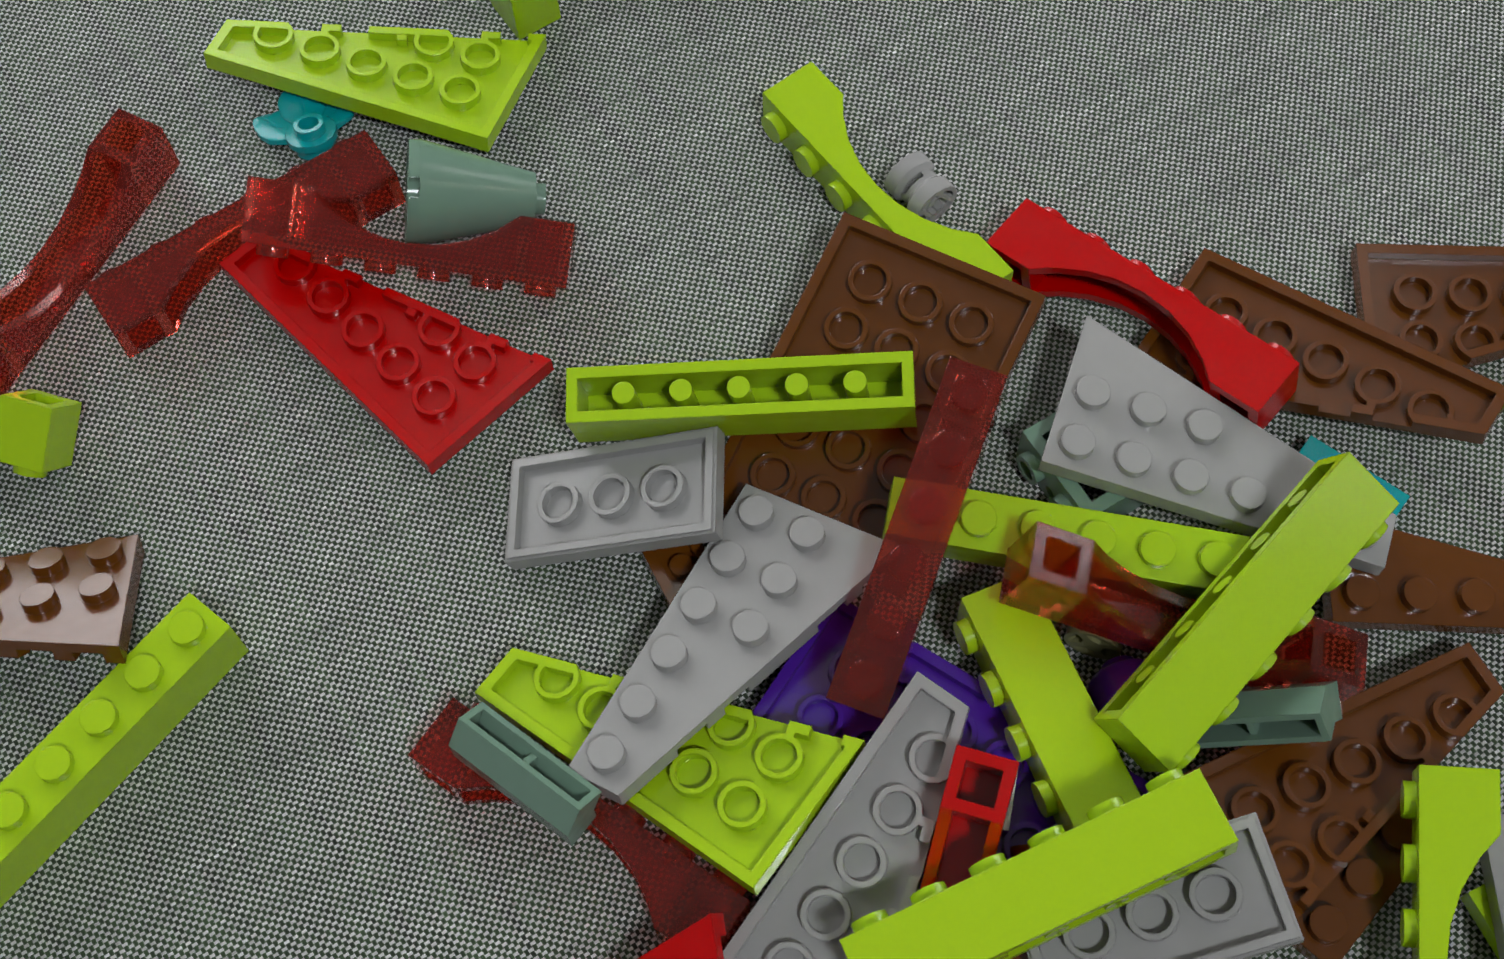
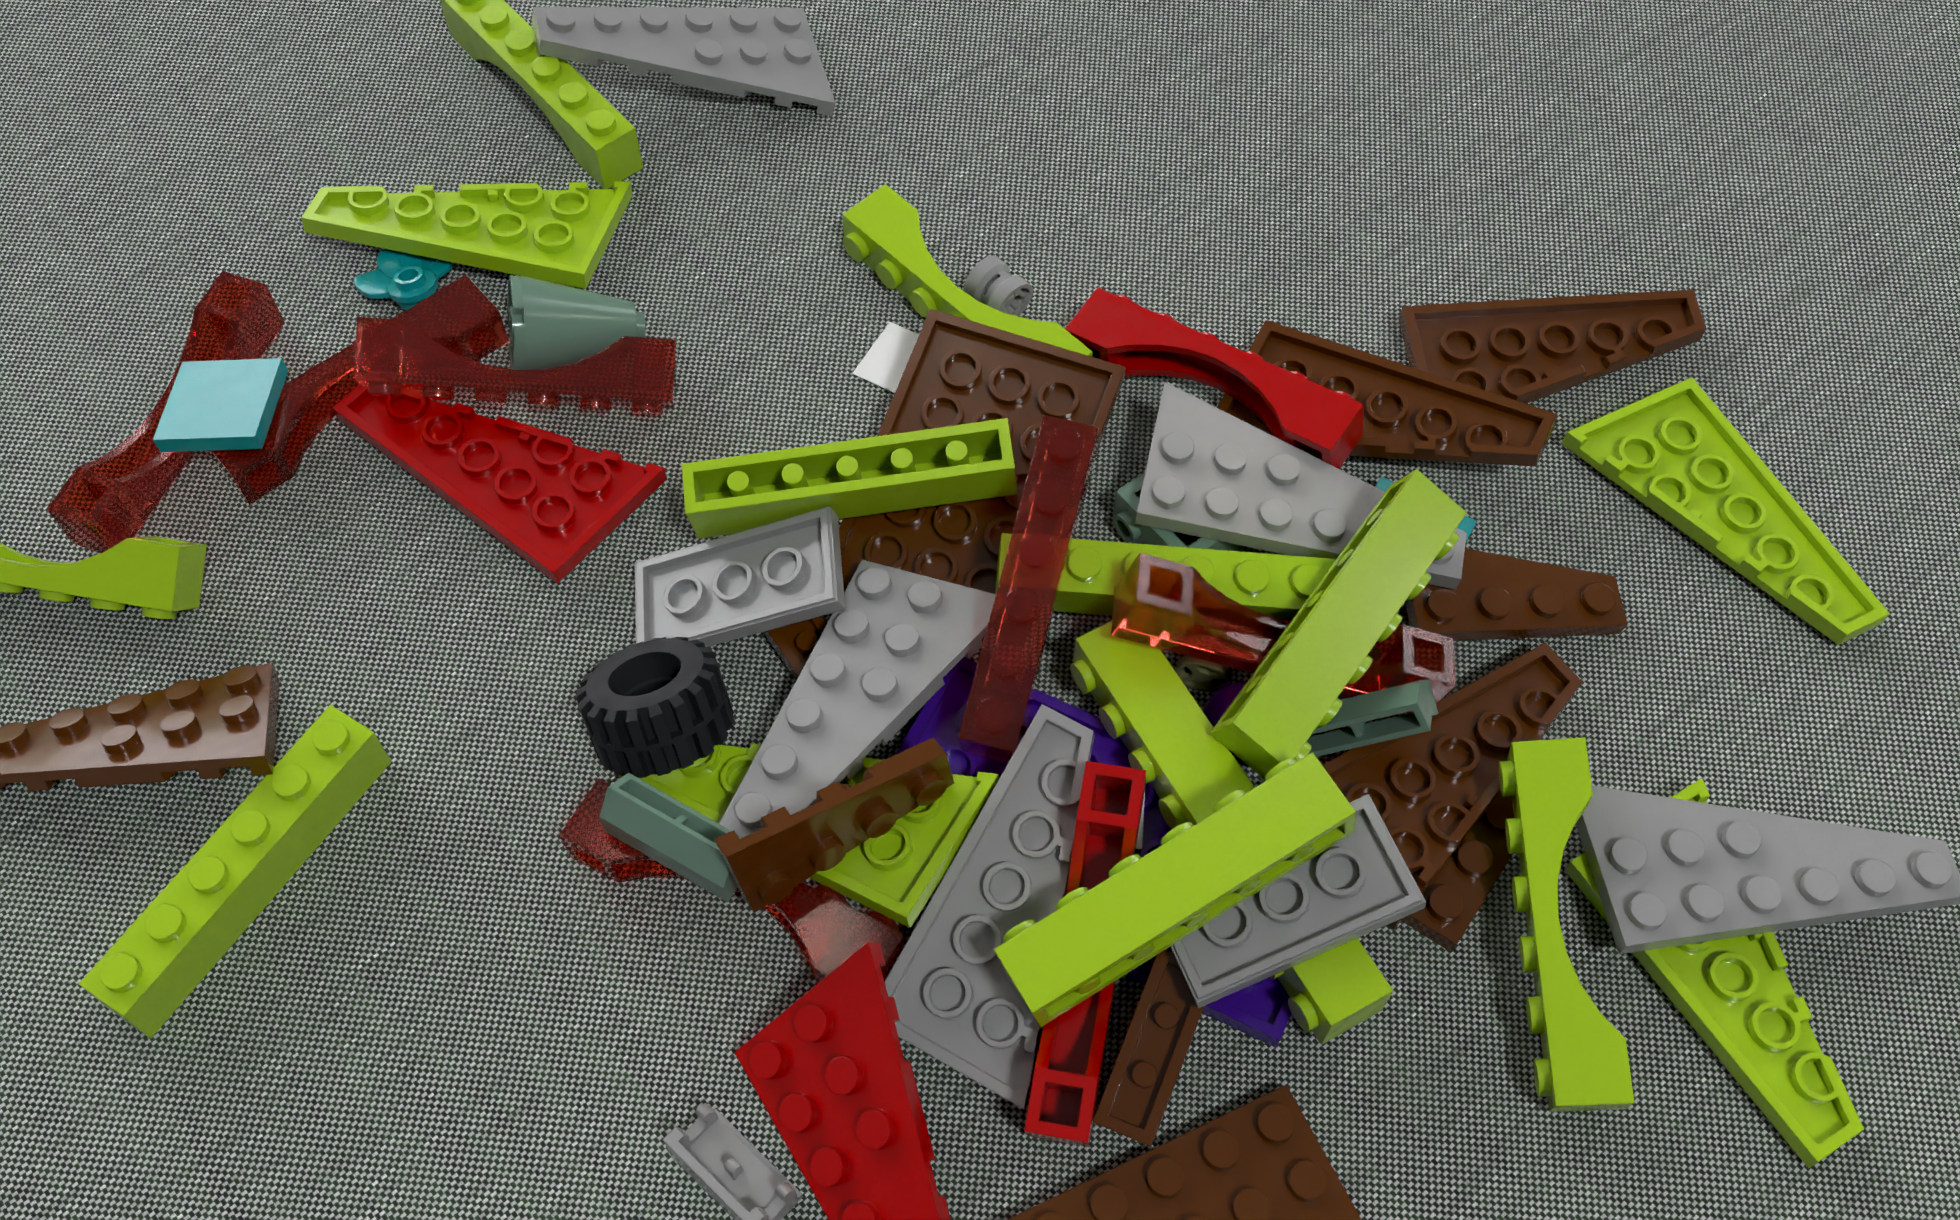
camera: 10 degrees left, 5 degrees down
(106, 255) = (221, 405): none -> tile
(518, 626) = (655, 706): none -> black tyre
(694, 776) = (843, 816): none -> reddish brown wing
(797, 252) = (887, 357): none -> white sticker

